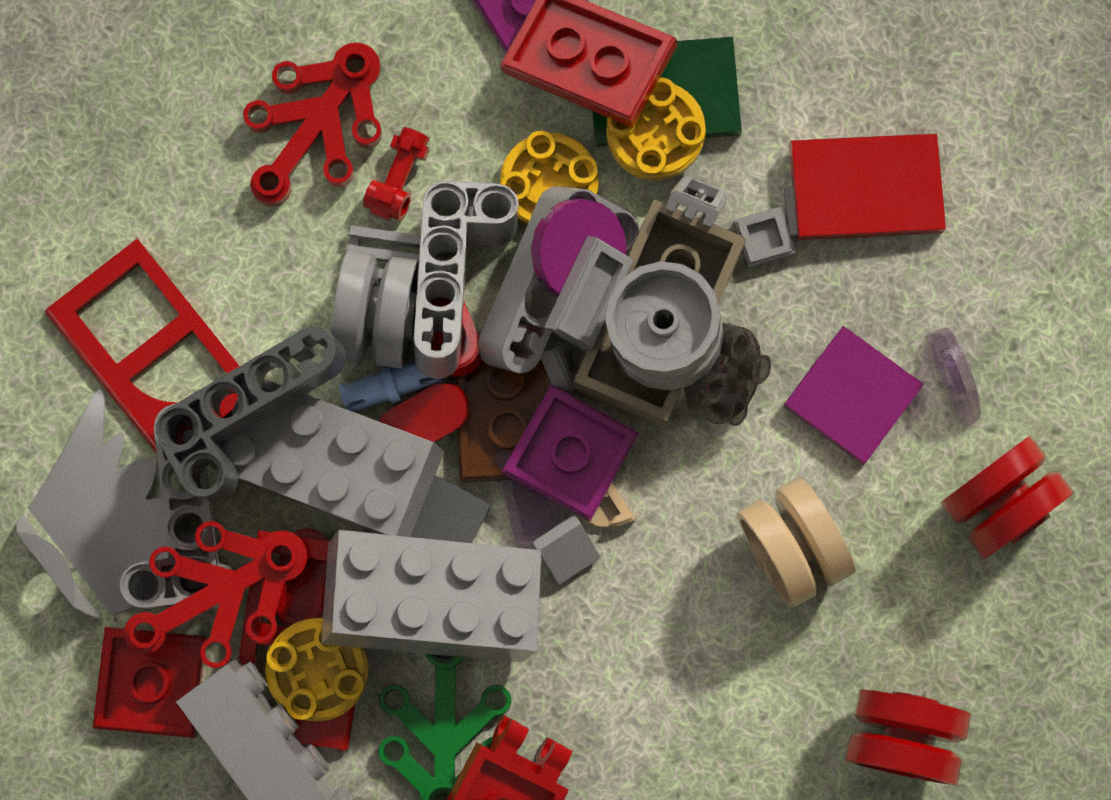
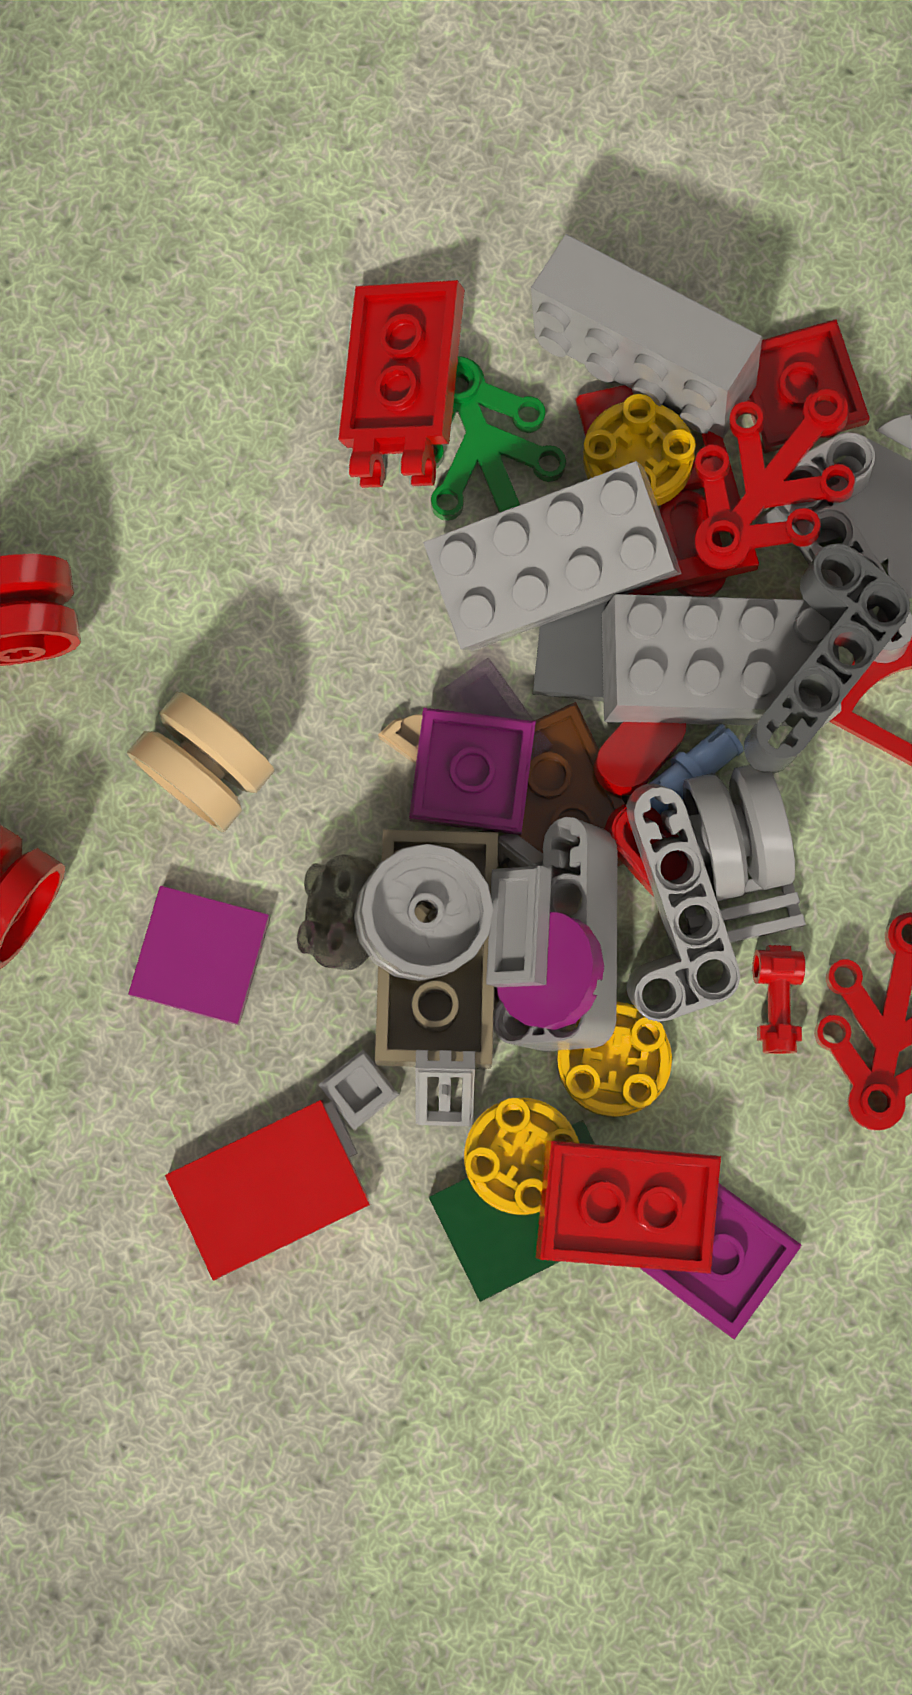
camera: 155 degrees right, 0 degrees up
(566, 549) = (436, 673): light grey tile -> none
(956, 374) = (100, 1021): tile -> none

